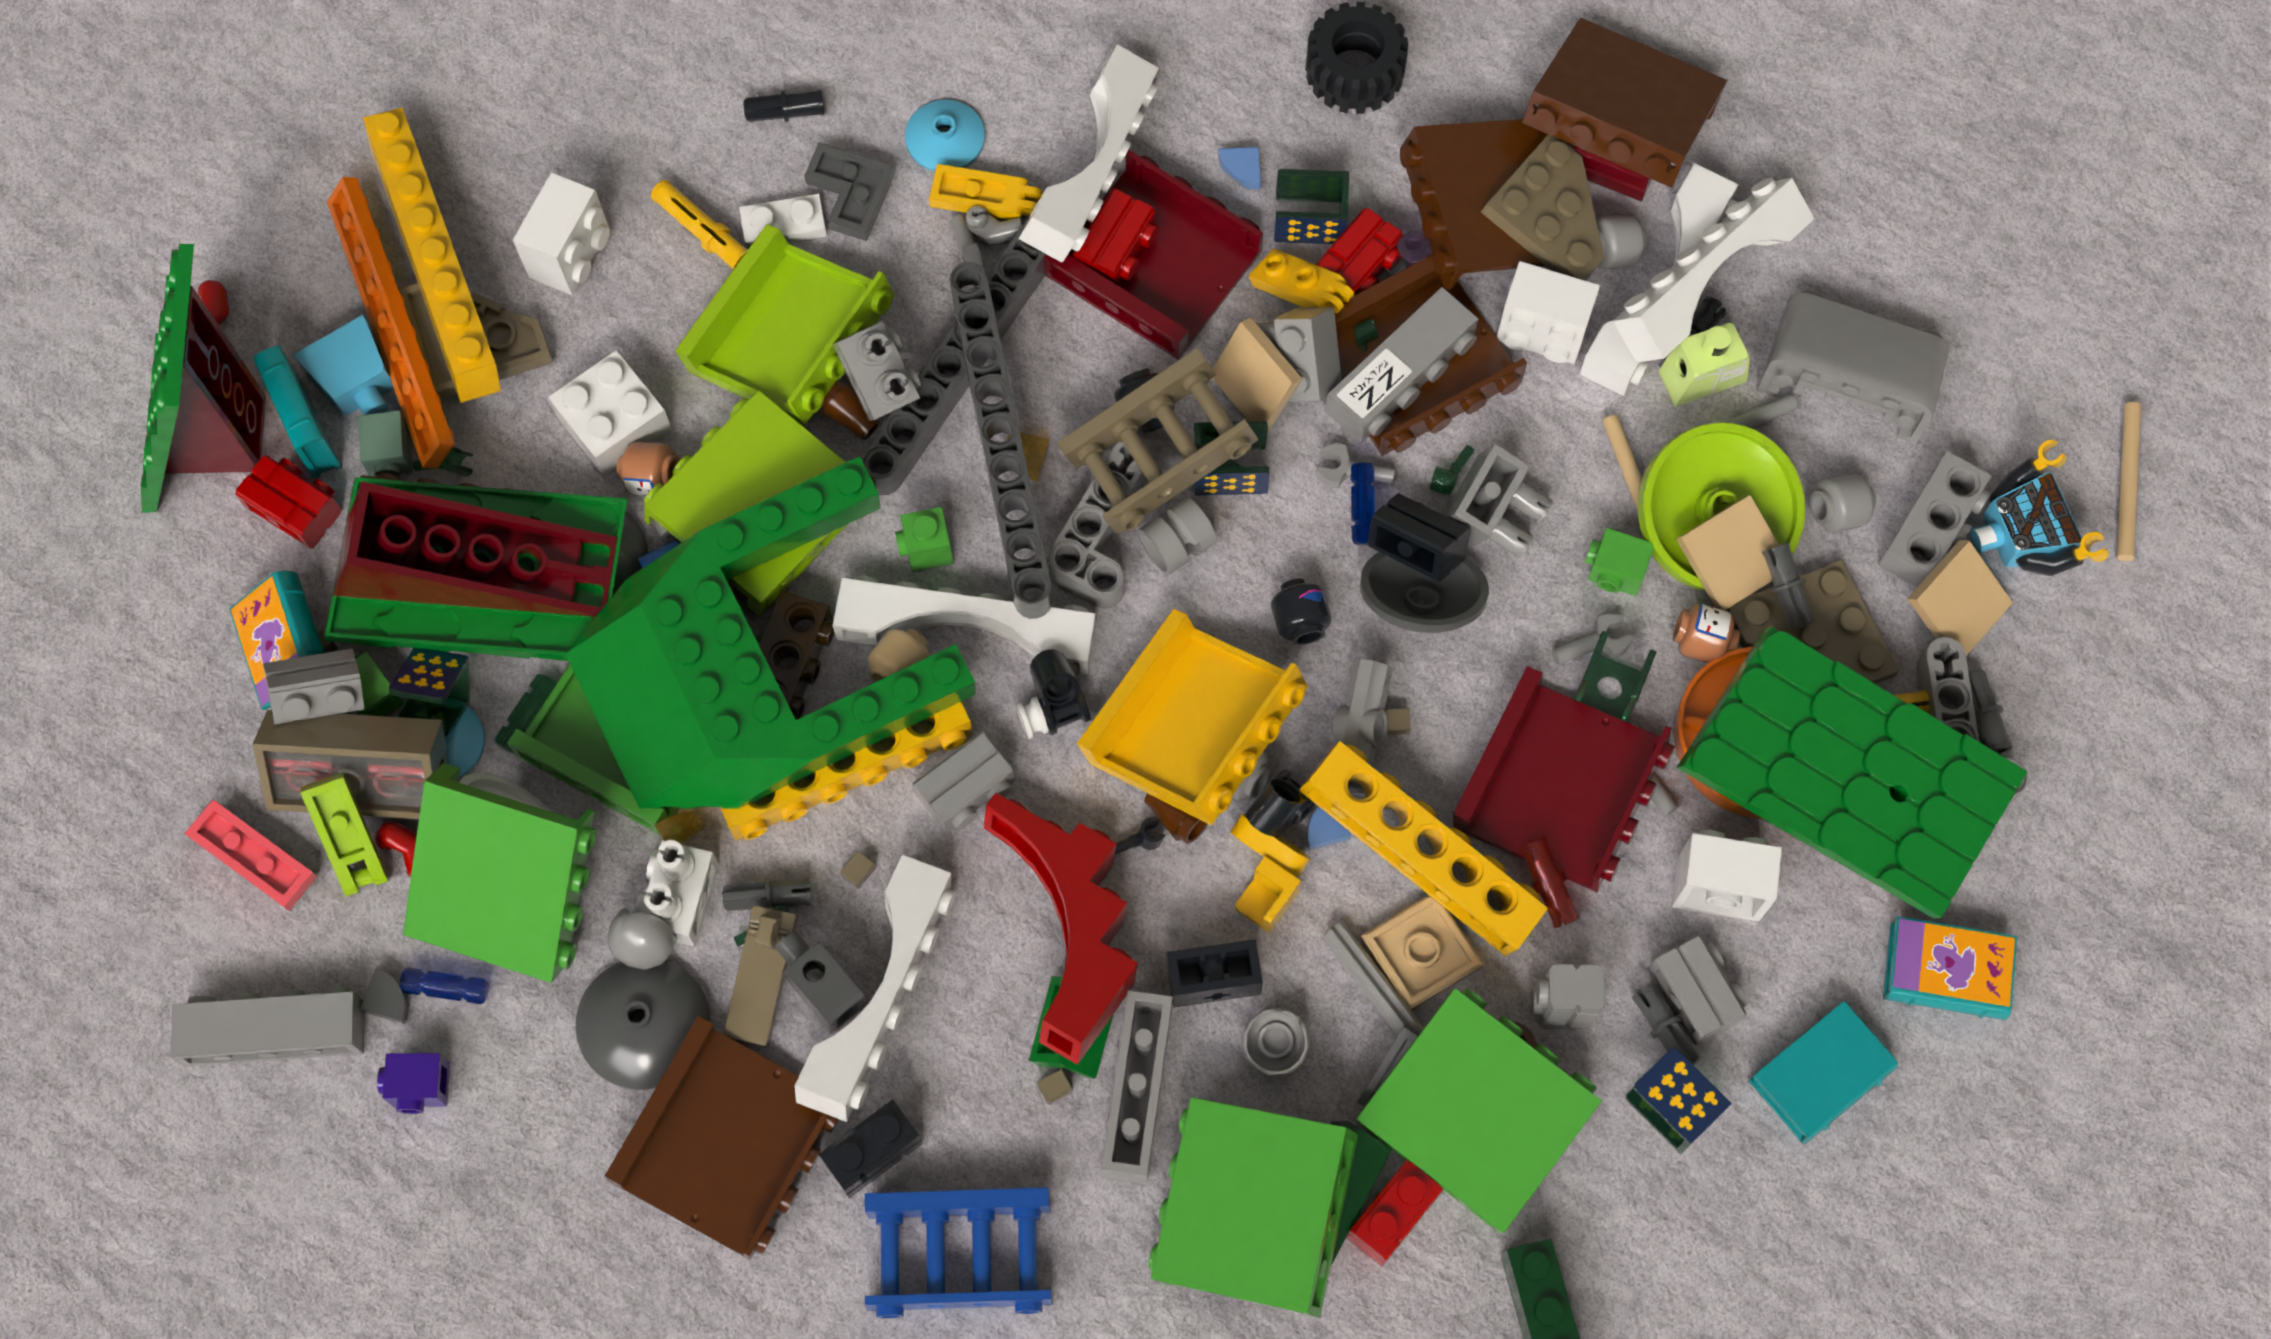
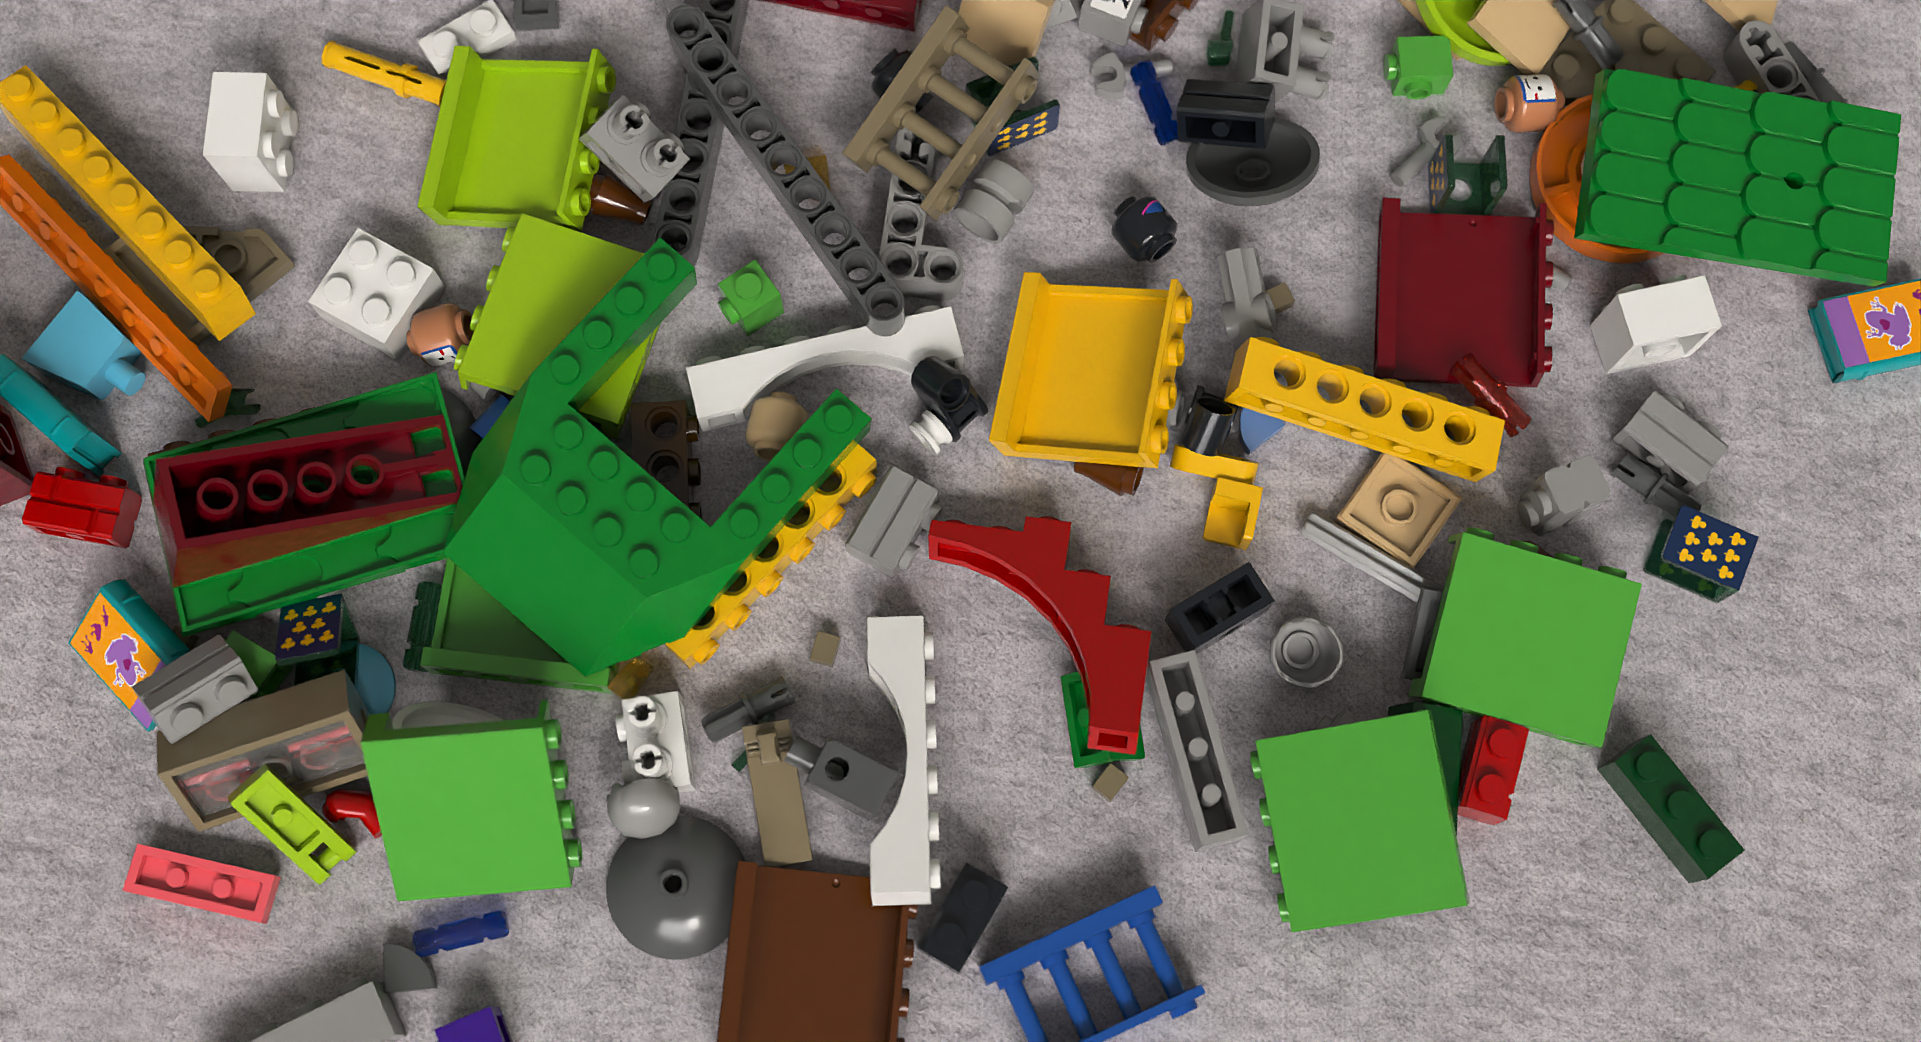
camera: 25 degrees left, 5 degrees up
(385, 443) = (158, 412): sand green brick -> none
(1141, 838) = (1087, 507): black hand -> none
(1824, 1073) = (1814, 473): teal piece -> none

